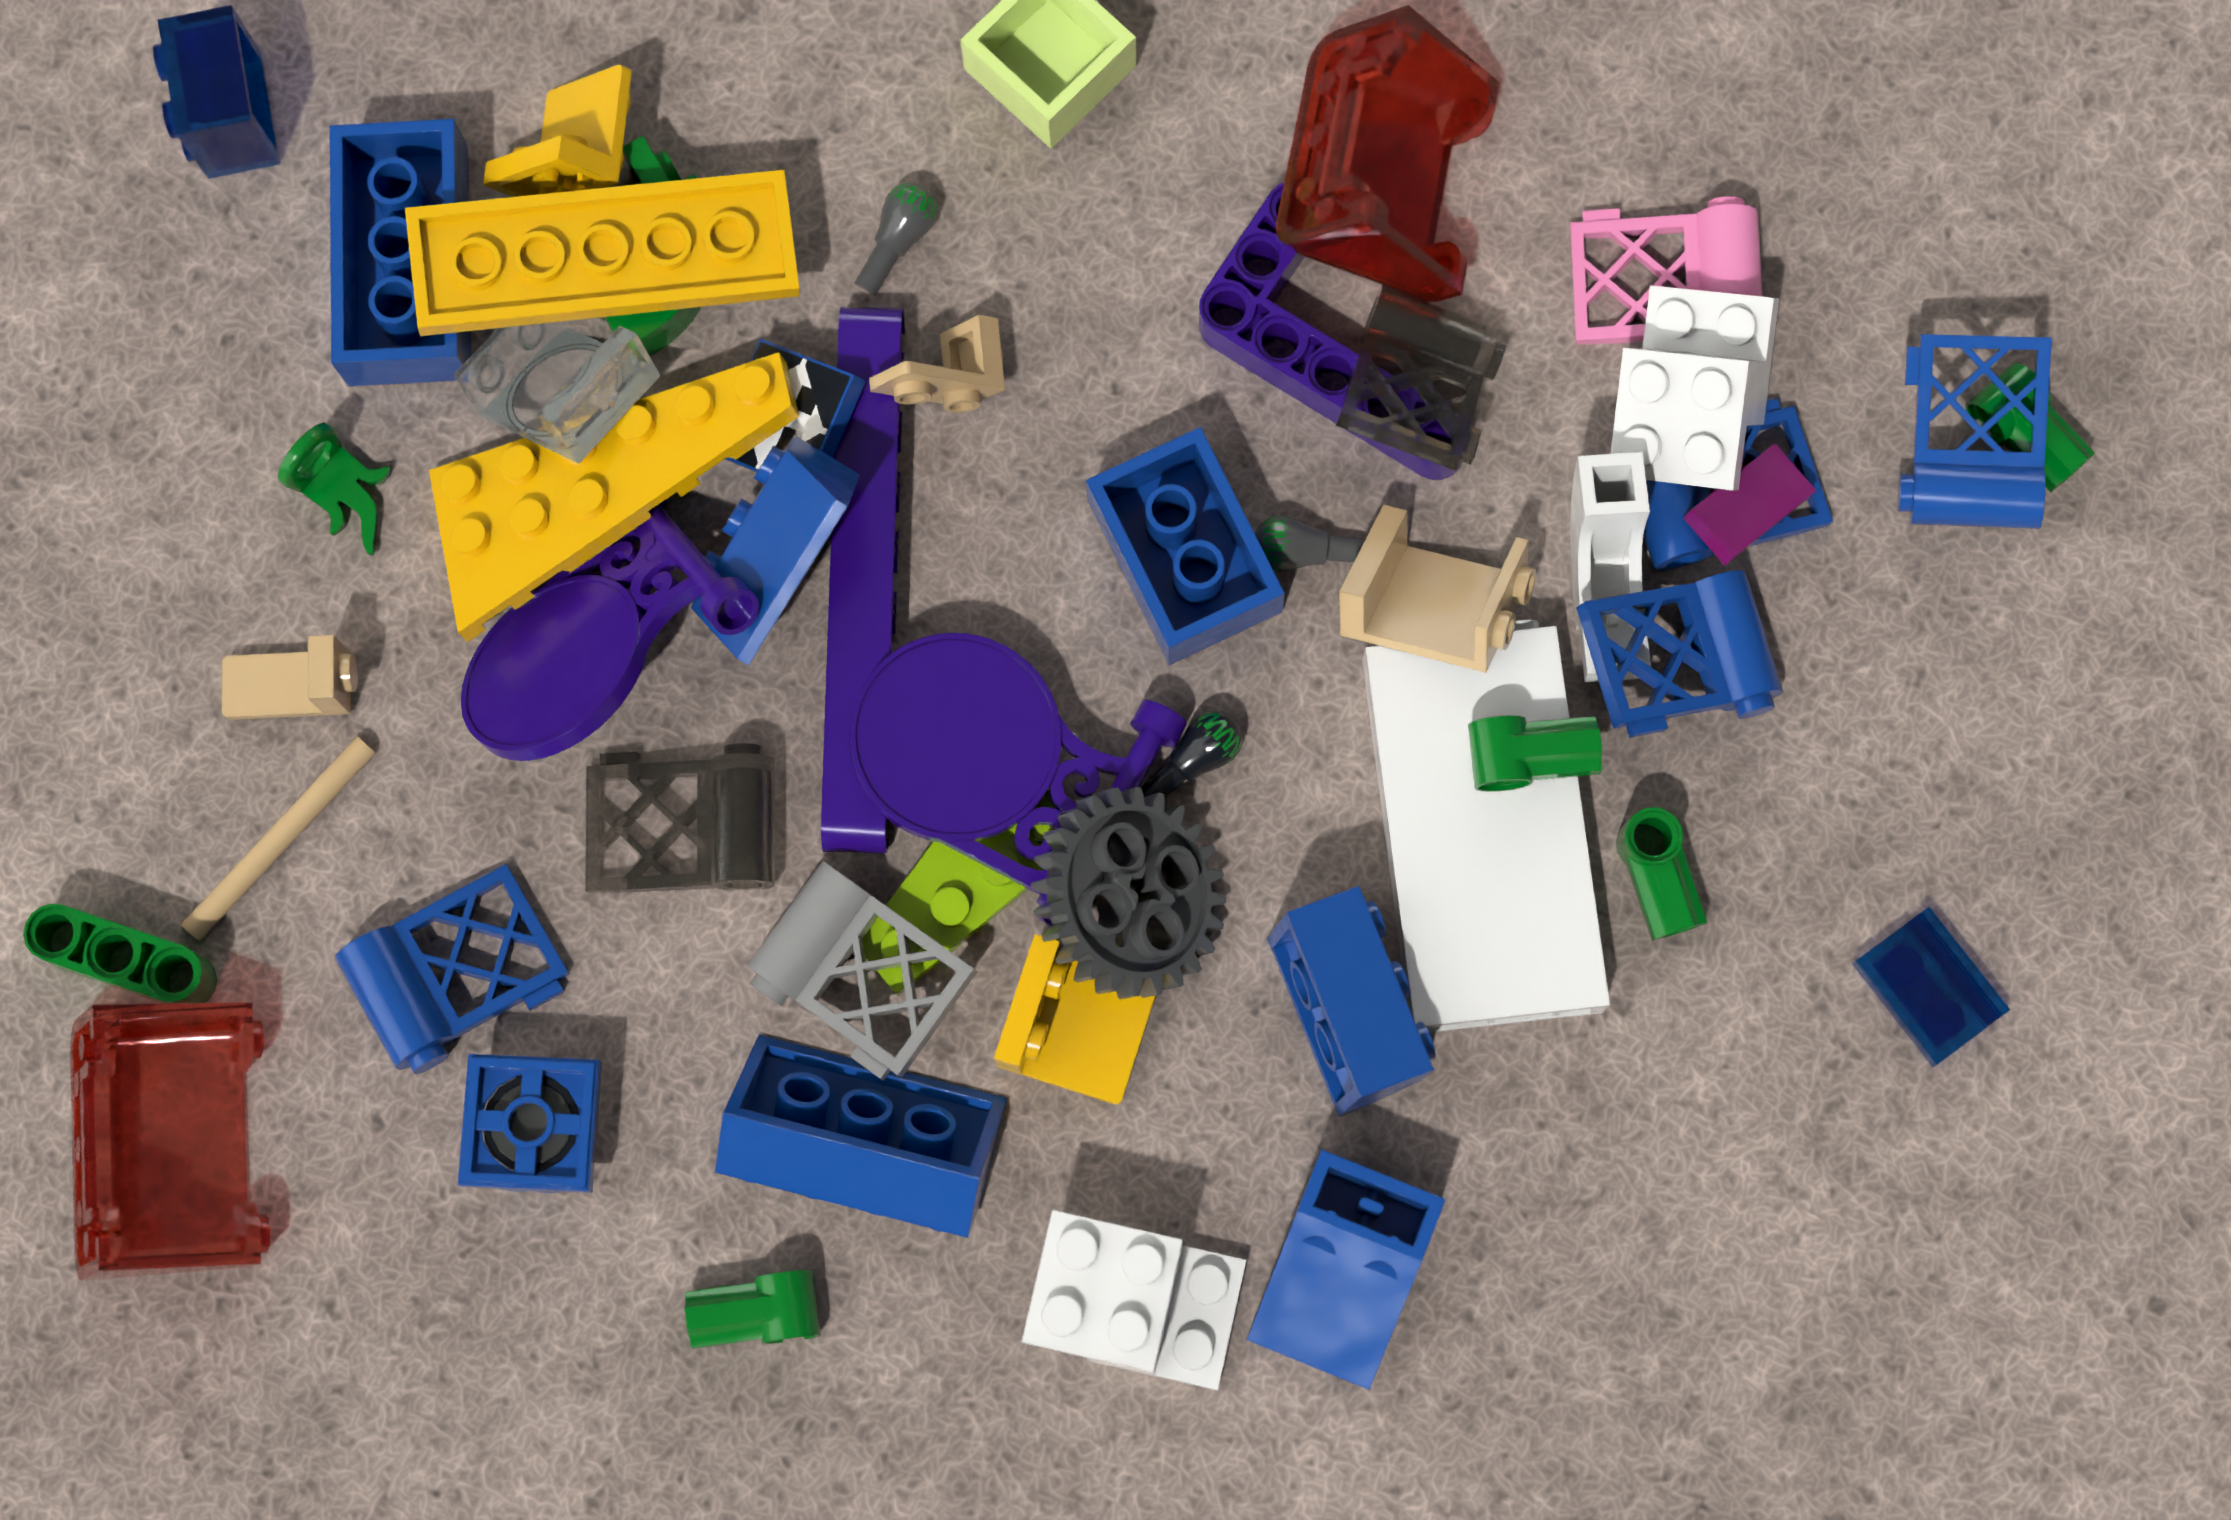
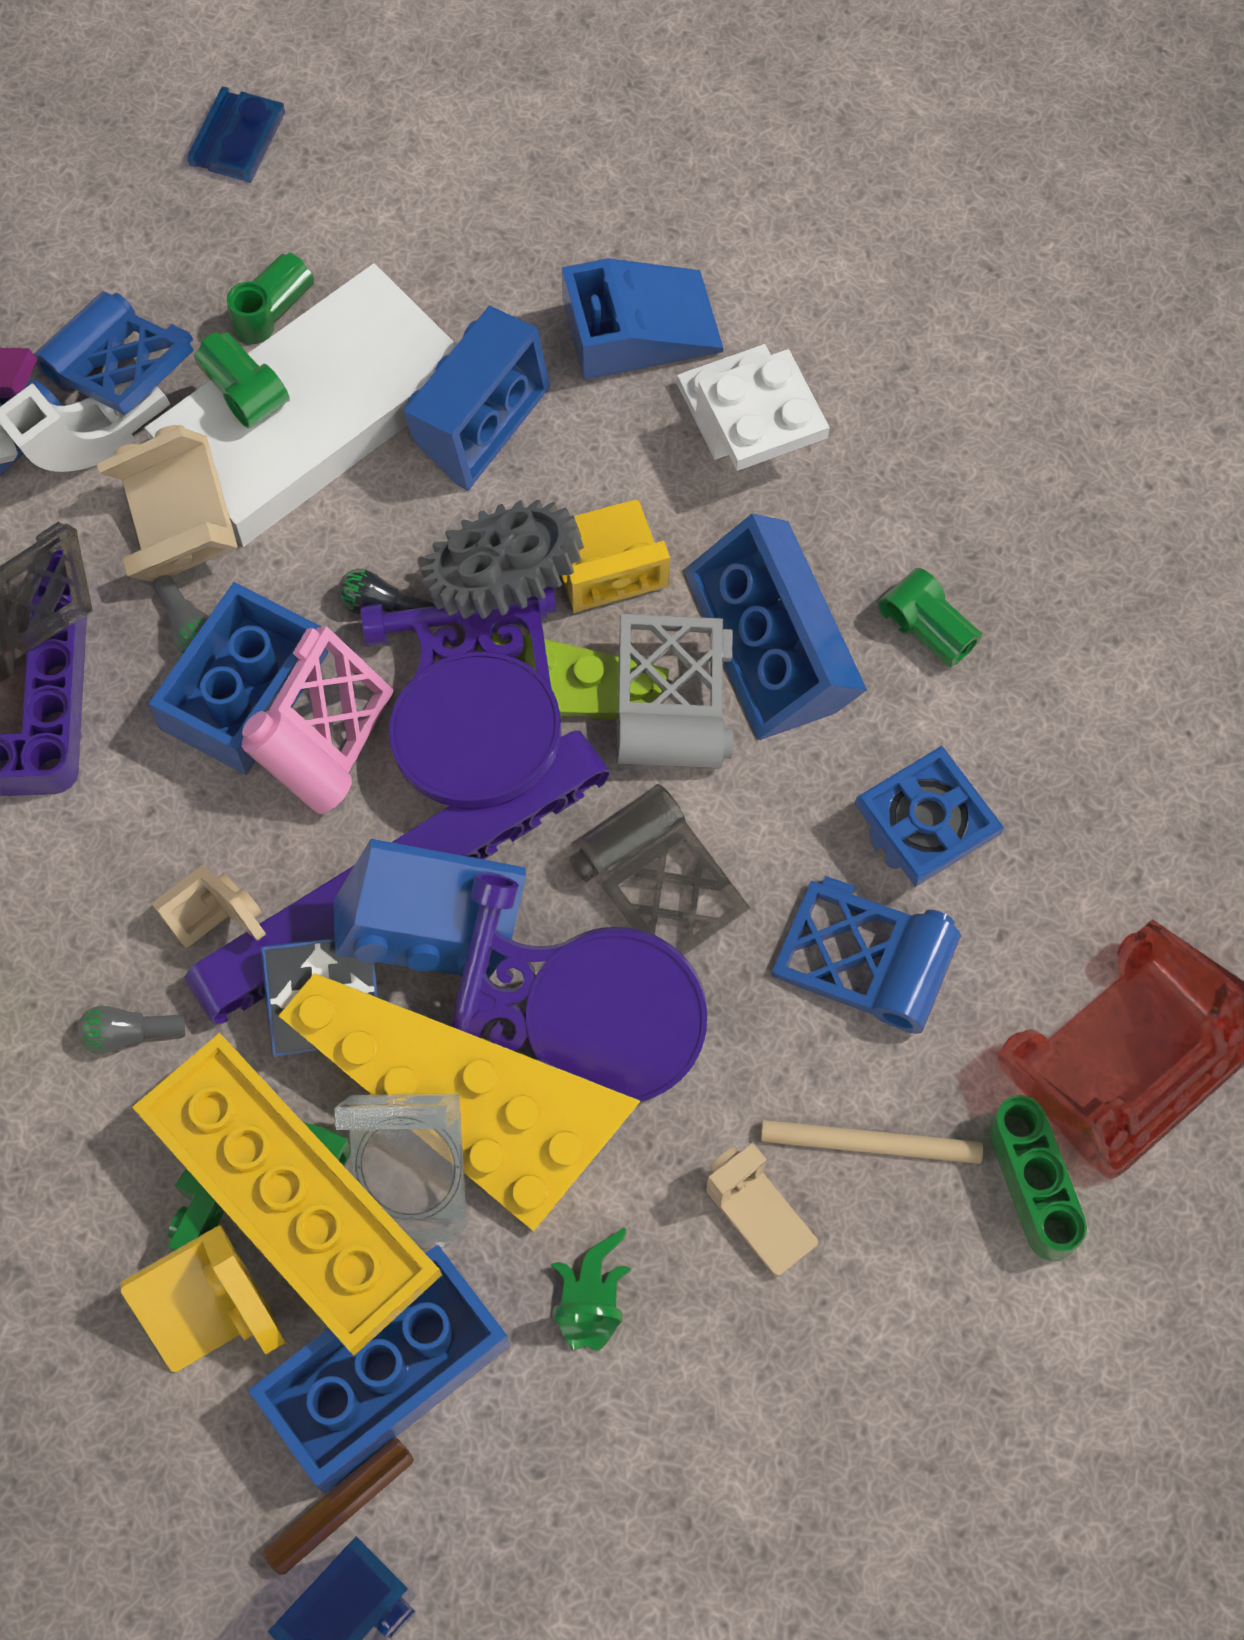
camera: 130 degrees left, 10 degrees down
(322, 109) = (337, 1506): none -> reddish brown axle
(1051, 544) = (302, 754): none -> bright pink piece

